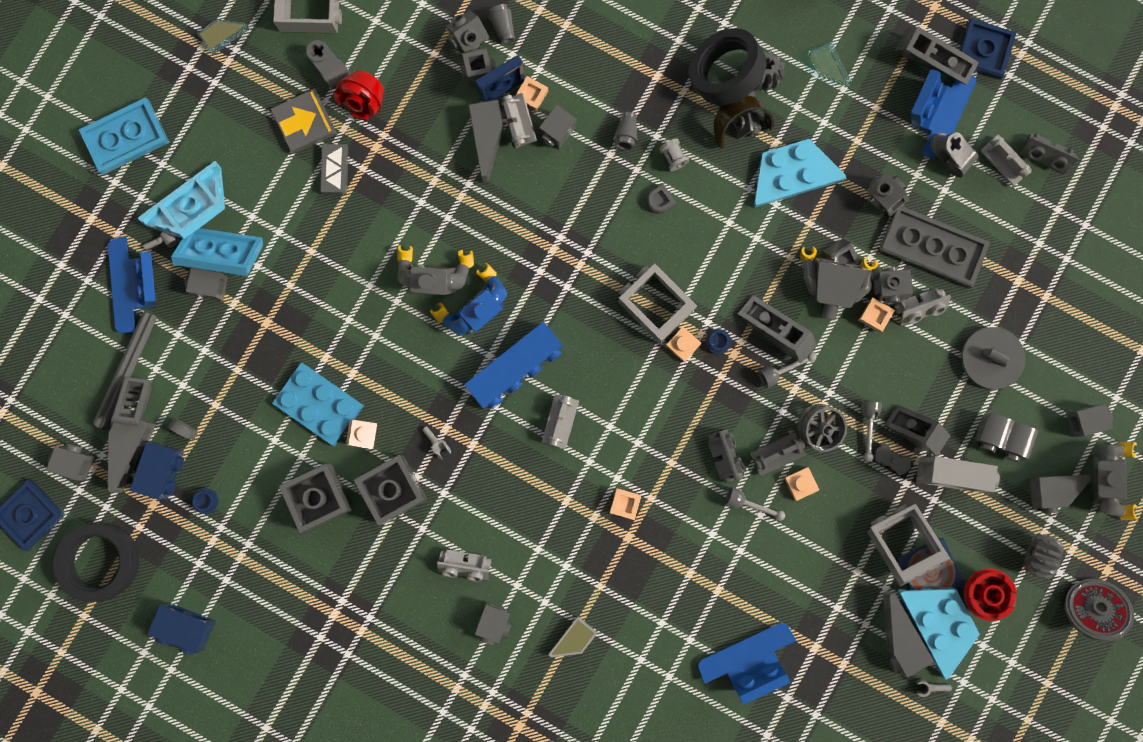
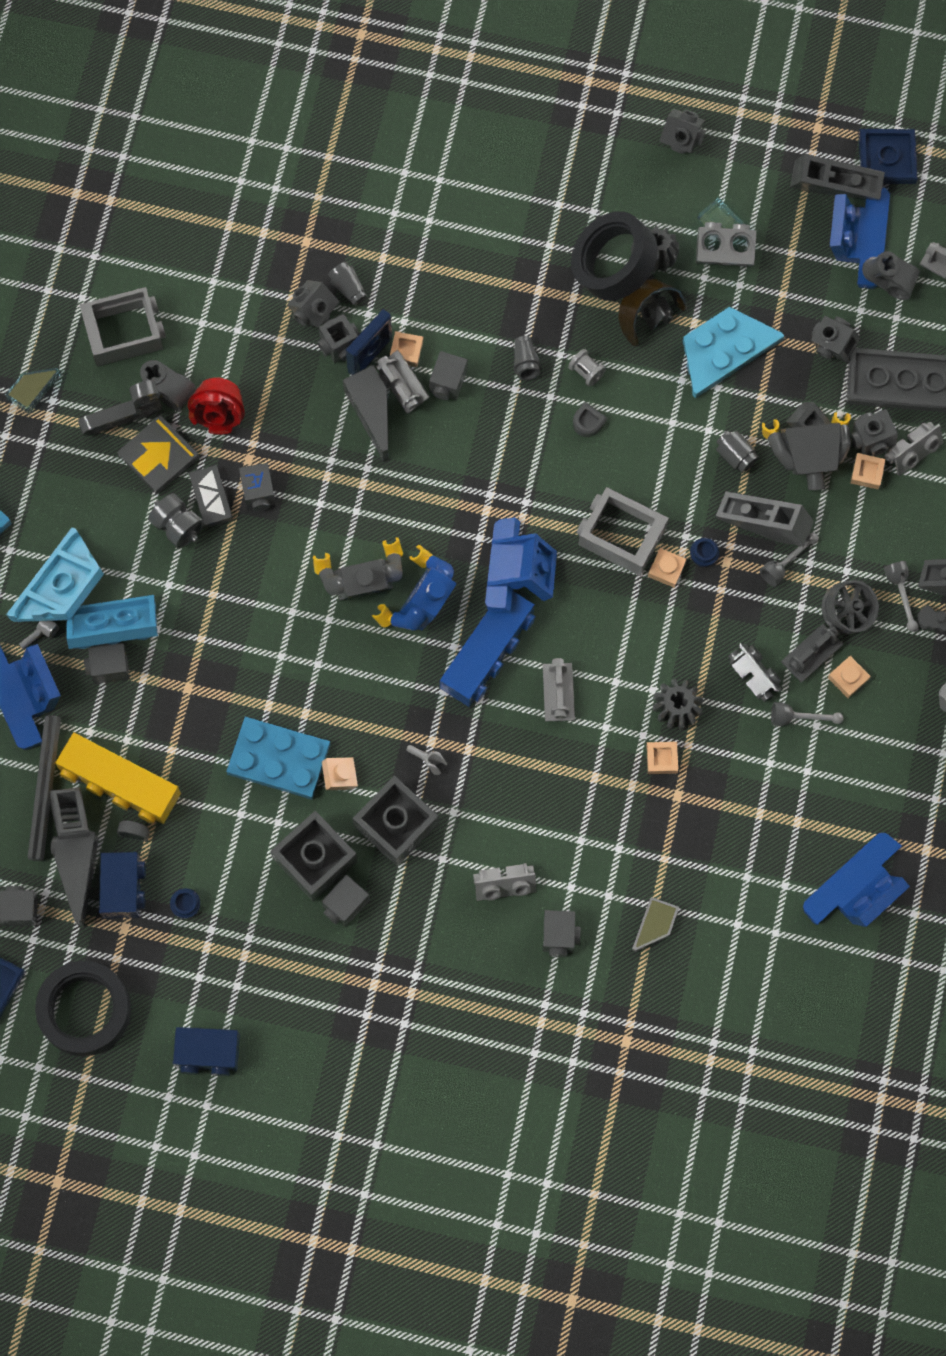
camera: 20 degrees left, 10 degrees down
(183, 382) = (117, 778): none -> yellow brick
(295, 73) = (144, 403): none -> dark grey beam
(296, 176) = (178, 523): none -> dark grey wheel
(330, 542) = (344, 901): none -> dark grey brick
(372, 173) = (257, 487): none -> dark grey brick
(560, 306) = (518, 563): none -> blue plate
(662, 463) = (688, 708): none -> dark grey gear
(773, 264) = (737, 451): none -> dark grey brick
(821, 92) = (726, 253): none -> light grey brick

